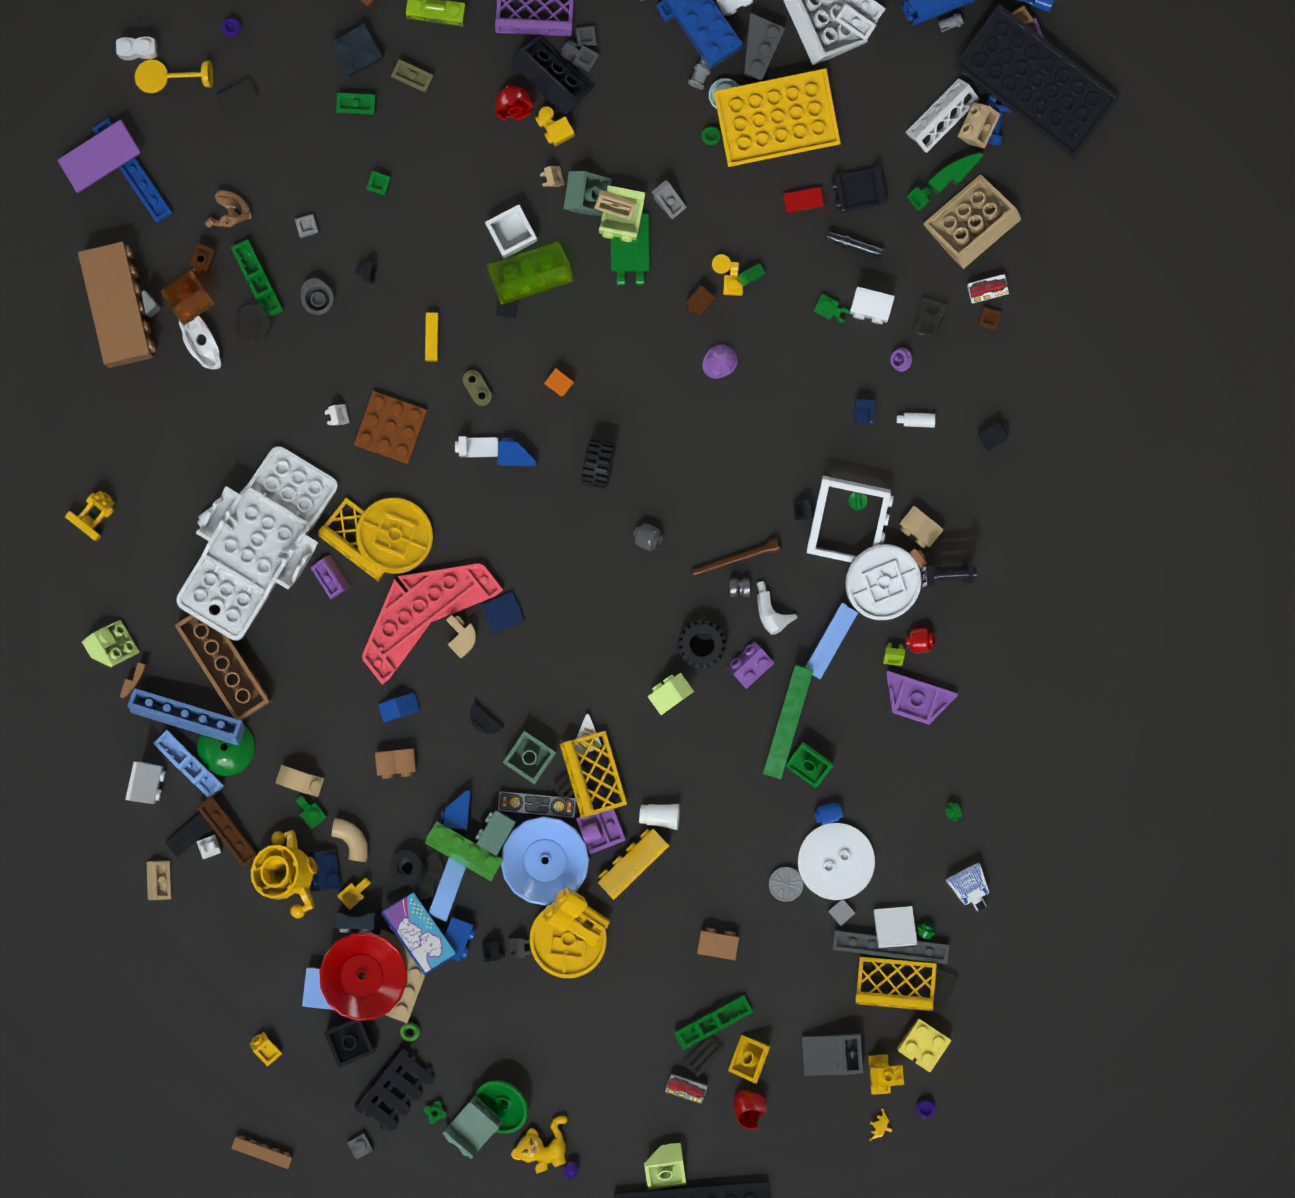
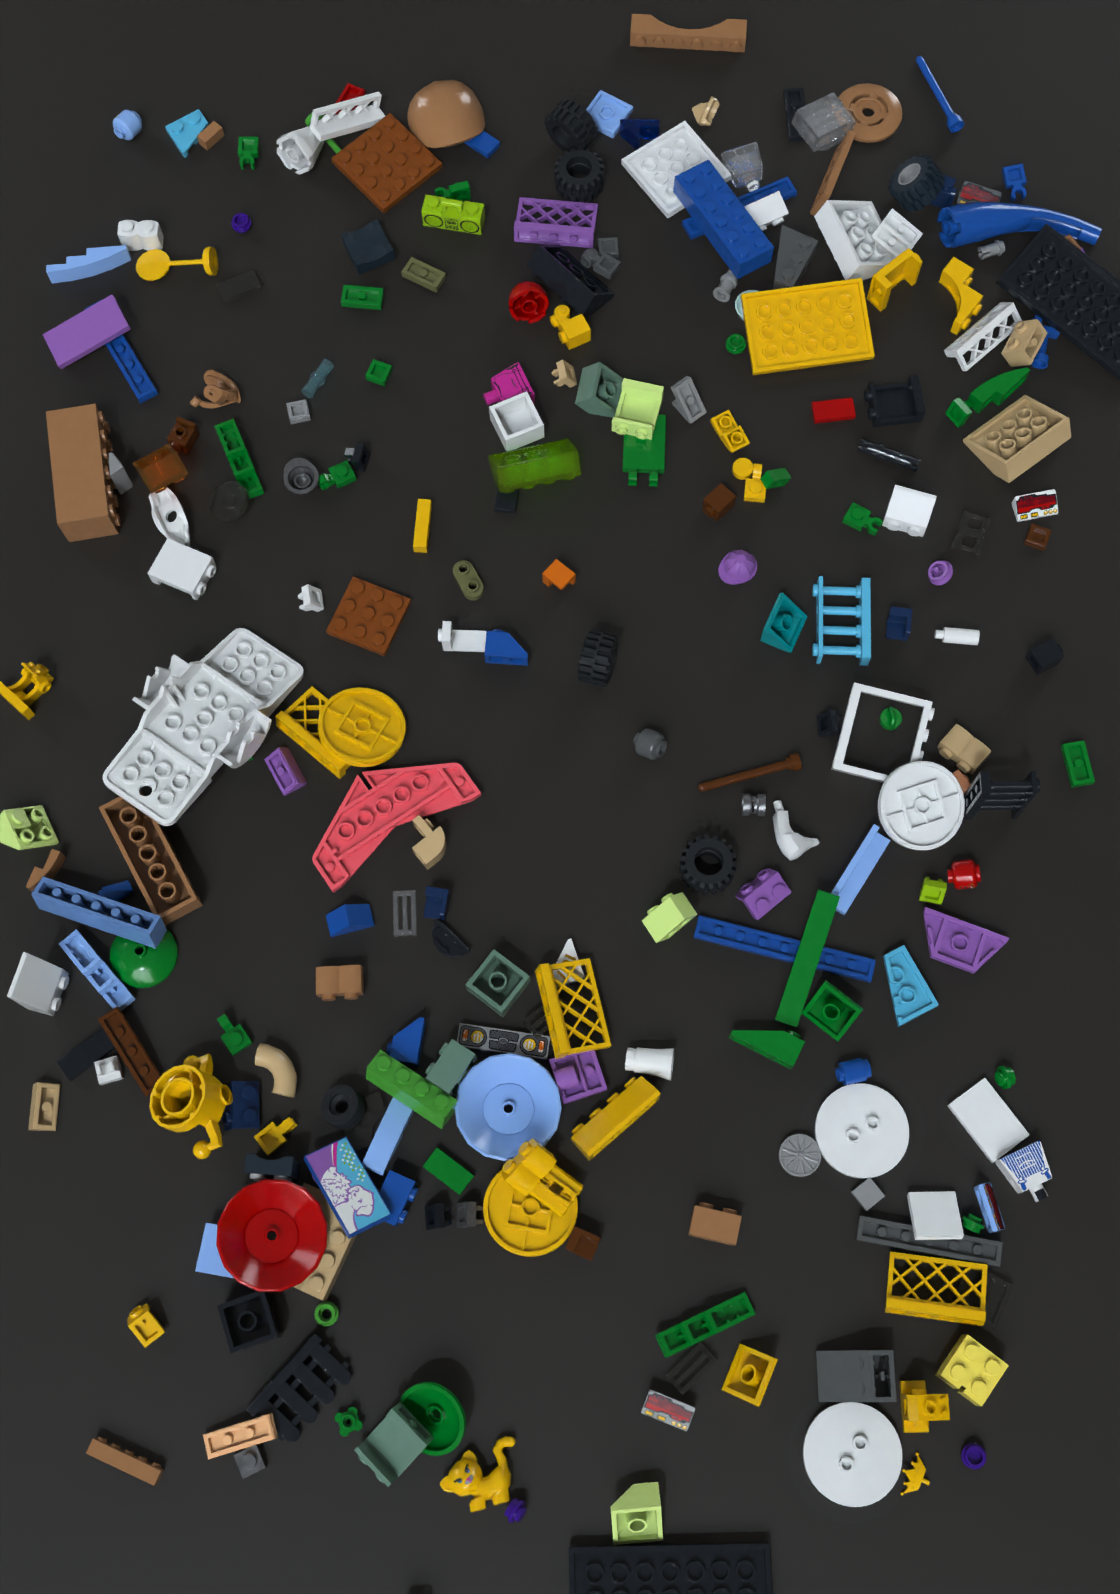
camera: 10 degrees right, 15 degrees down
(97, 77) = (94, 262): none -> light blue slope
(195, 695) = (116, 891): none -> blue cone
(218, 393) = (182, 568): none -> white panel
(299, 781) = (224, 996): tan brick -> none
(321, 192) = (317, 378): none -> clear light blue pin
(351, 289) = (339, 475): none -> green plate
(351, 1128) = (240, 1436): none -> light nougat tile
(447, 715) = (405, 932): none -> clear tile
(471, 690) = (436, 903): none -> dark blue panel
(499, 913) = (448, 1171): none -> green tile
(502, 195) = (508, 384): none -> dark pink torso
(502, 612) = (479, 820): dark blue piece -> none
(612, 965) = (582, 1243): none -> reddish brown panel
(616, 202) = (635, 391): tan tile -> none
(708, 227) = (729, 431): none -> yellow slope
(748, 1108) = (747, 1440): red piece -> none
(762, 418) = (783, 624): none -> teal slope
(763, 795) = (775, 1045): none -> green slope
(766, 711) = (781, 948): none -> blue tile
(830, 402) = (861, 611): none -> medium azure fence
(831, 1112) = (852, 1454): none -> white plate
(842, 73) = (903, 267): none -> yellow panel
(873, 740) = (907, 986): none -> medium azure wing
(928, 83) = (957, 279): none -> yellow arch
(939, 846) = (988, 1120): none -> white tile
(940, 917) = (989, 1207): none -> light blue slope
(1019, 534) = (1077, 764): none -> green plate

